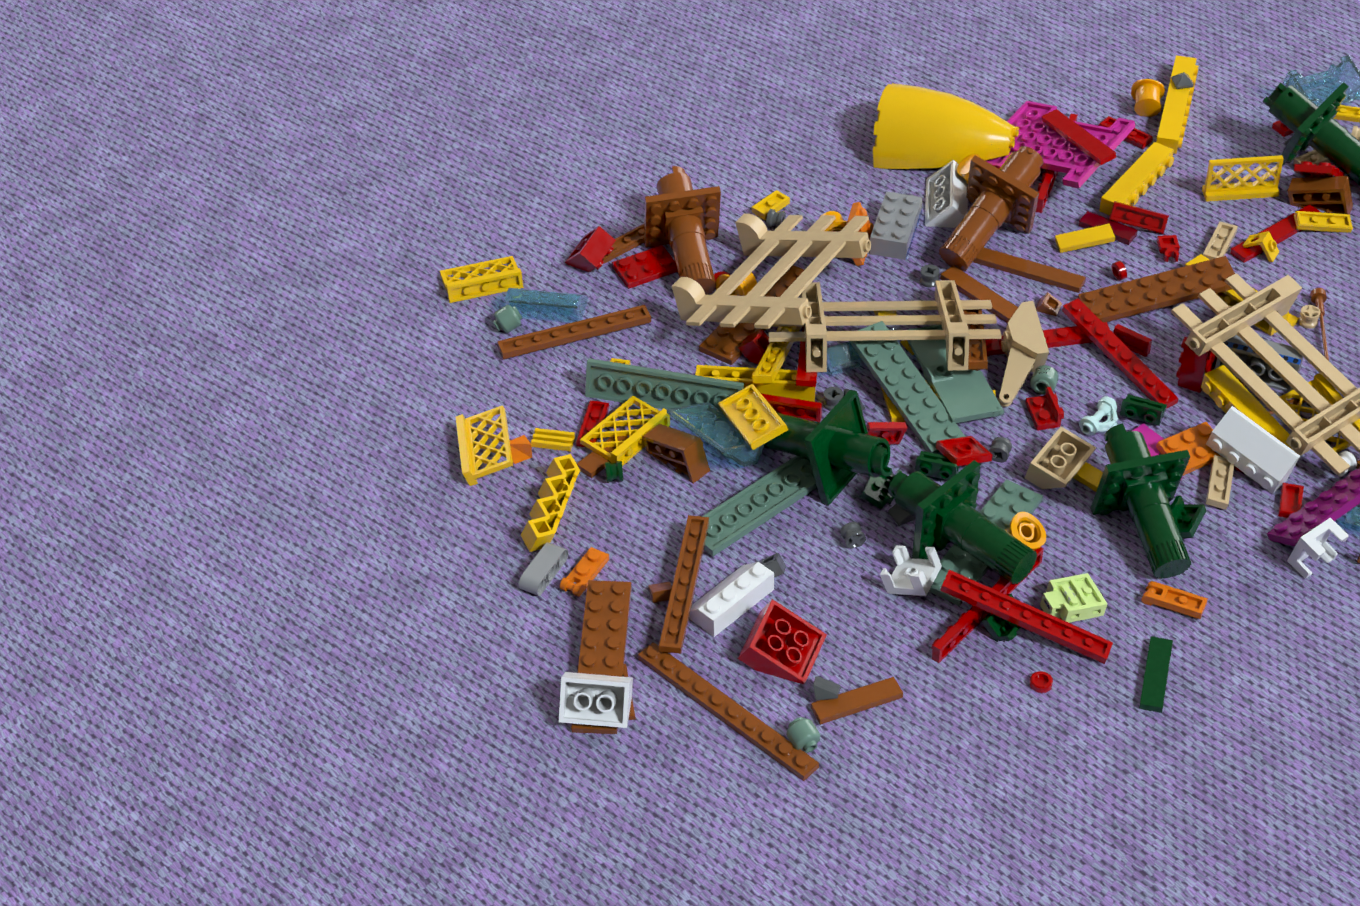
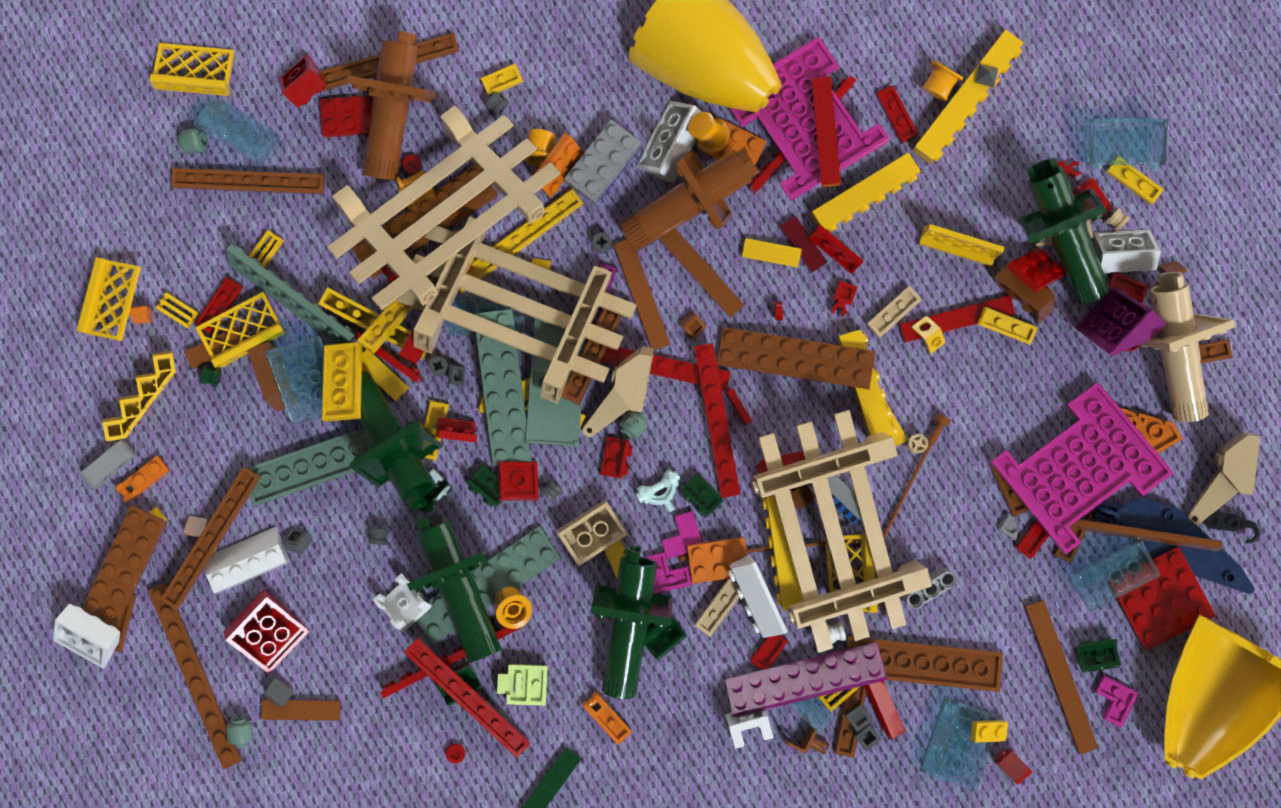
camera: 20 degrees right, 40 degrees up
(863, 284) = (529, 232): none -> yellow tile

